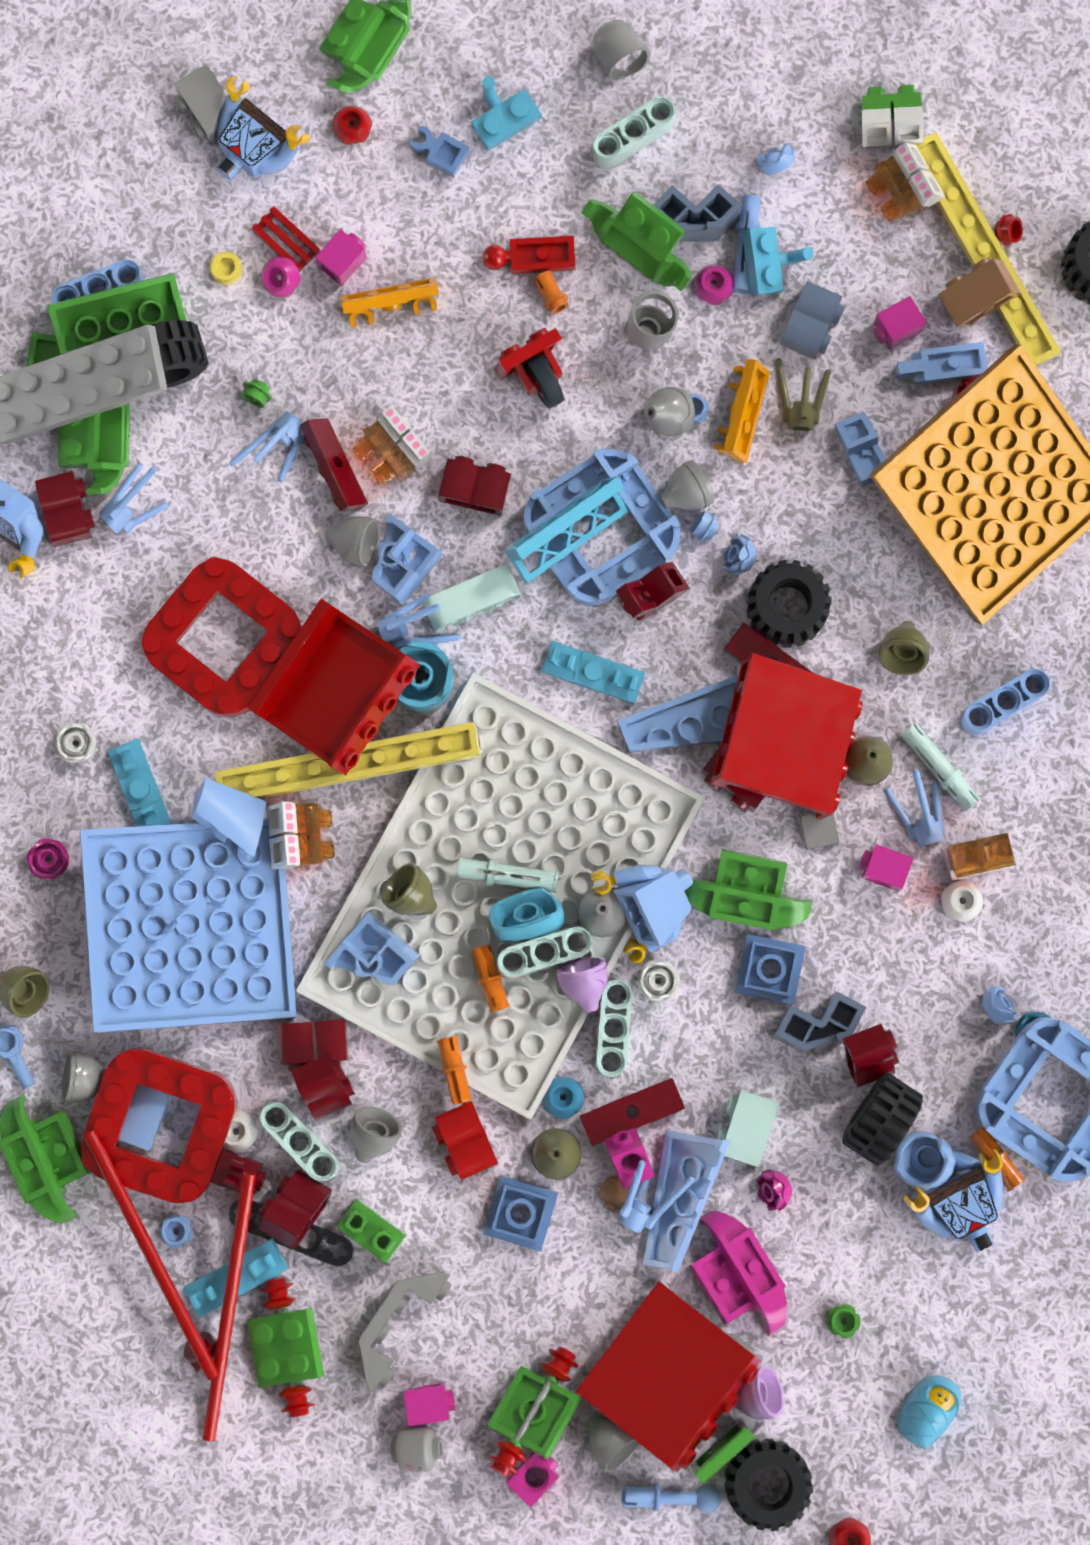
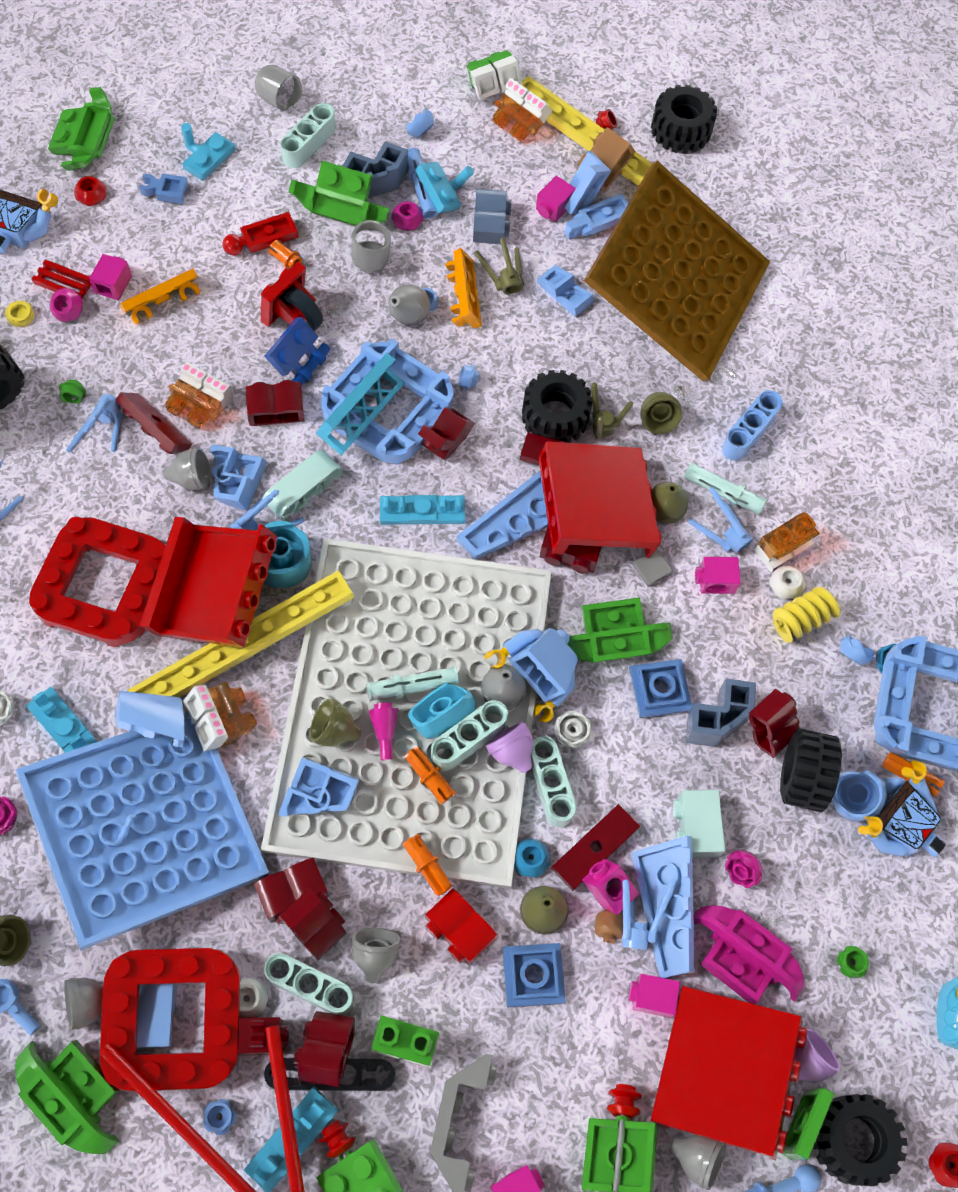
camera: 25 degrees left, 15 degrees down
(463, 906) = (384, 724): none -> dark pink cone
(517, 424) = (292, 346): none -> blue plate
(629, 1278) = (654, 995): none -> dark pink brick
(687, 489) = (446, 350): light grey helmet -> none
(739, 555) = (504, 387): light blue plate -> none
(837, 637) = (605, 421): none -> olive plant
(943, 318) = (587, 182): none -> light blue panel
(961, 945) = (805, 613): none -> light yellow piece

